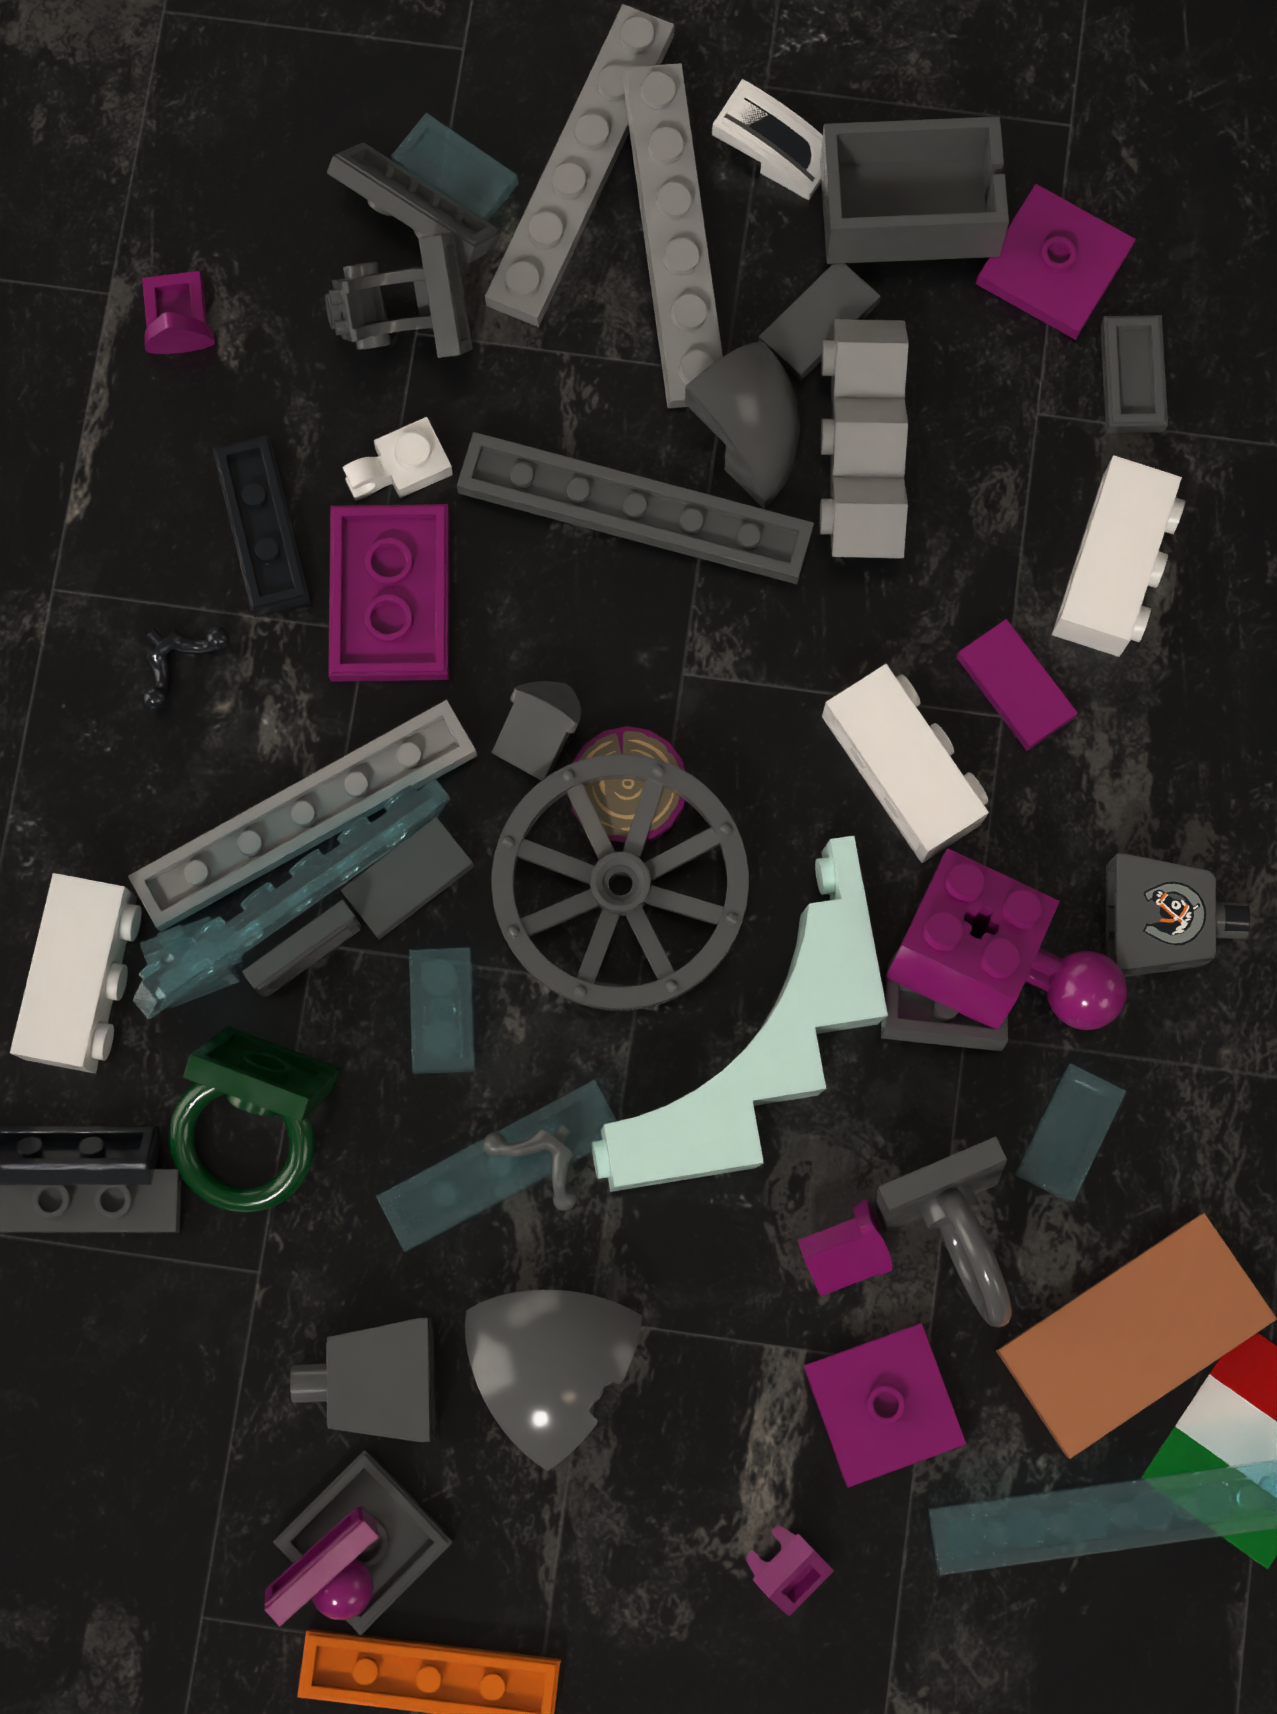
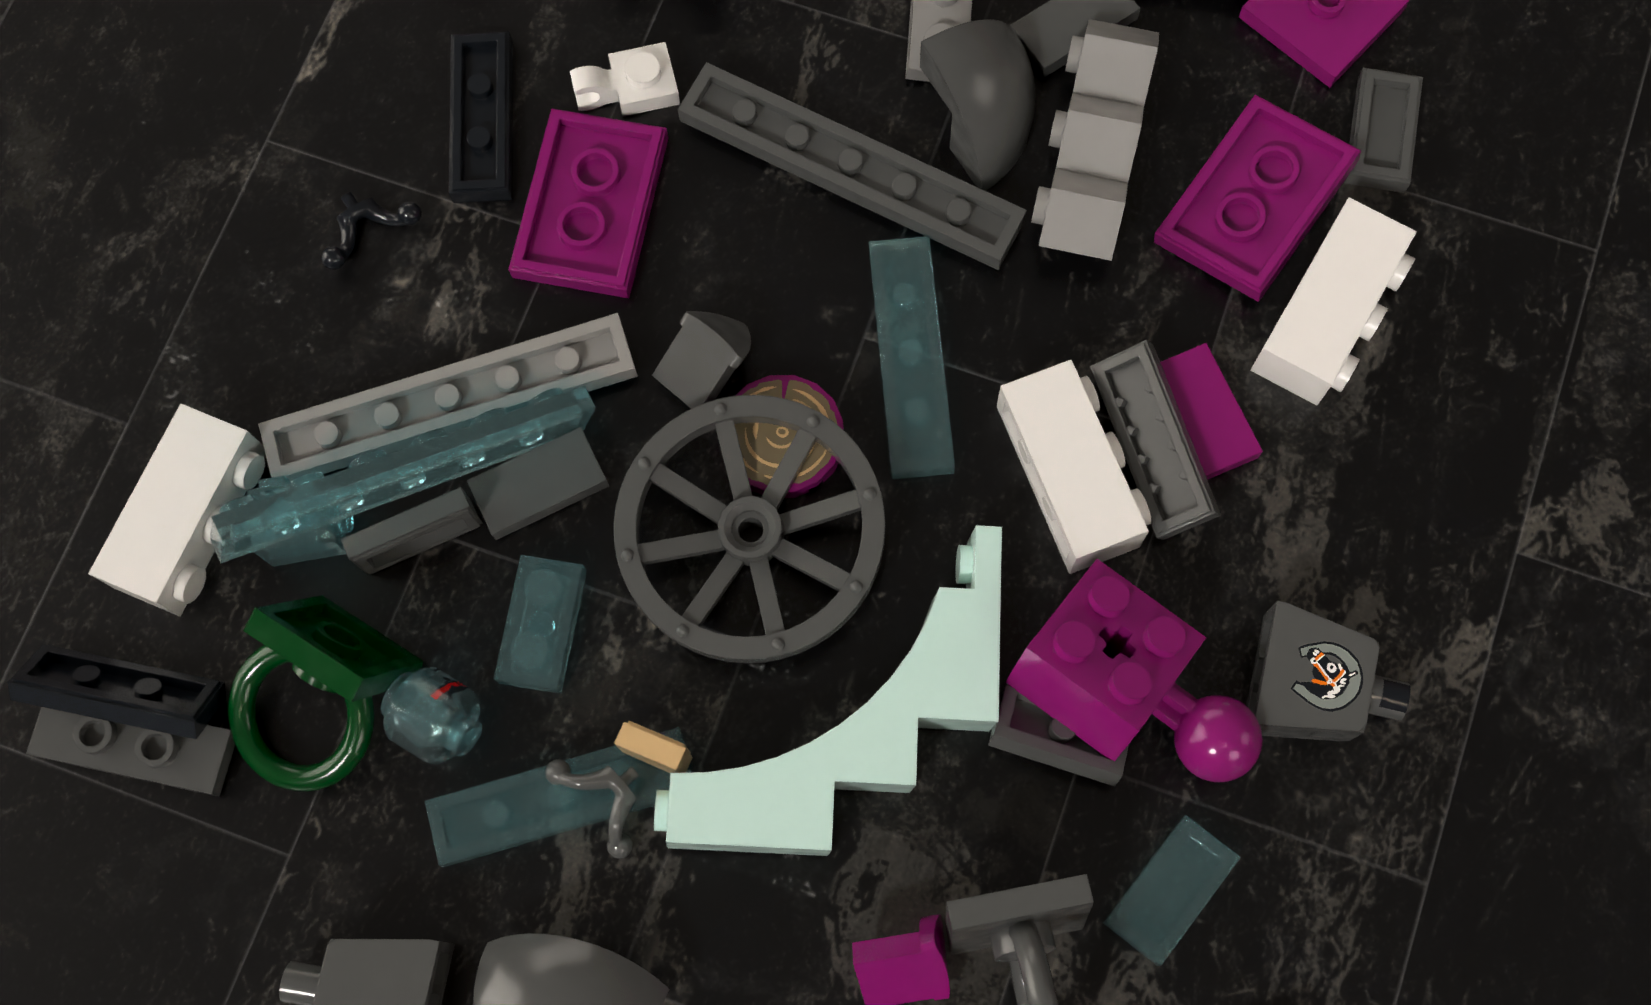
camera: 15 degrees right, 5 degrees down
(365, 1117) = (431, 715): none -> clear light blue head
(580, 1105) = (653, 748): none -> tan tile
(732, 685) = (911, 358): none -> clear light blue tile
(976, 722) = (1155, 440): none -> dark grey plate
(1027, 466) = (1257, 197): none -> magenta tile

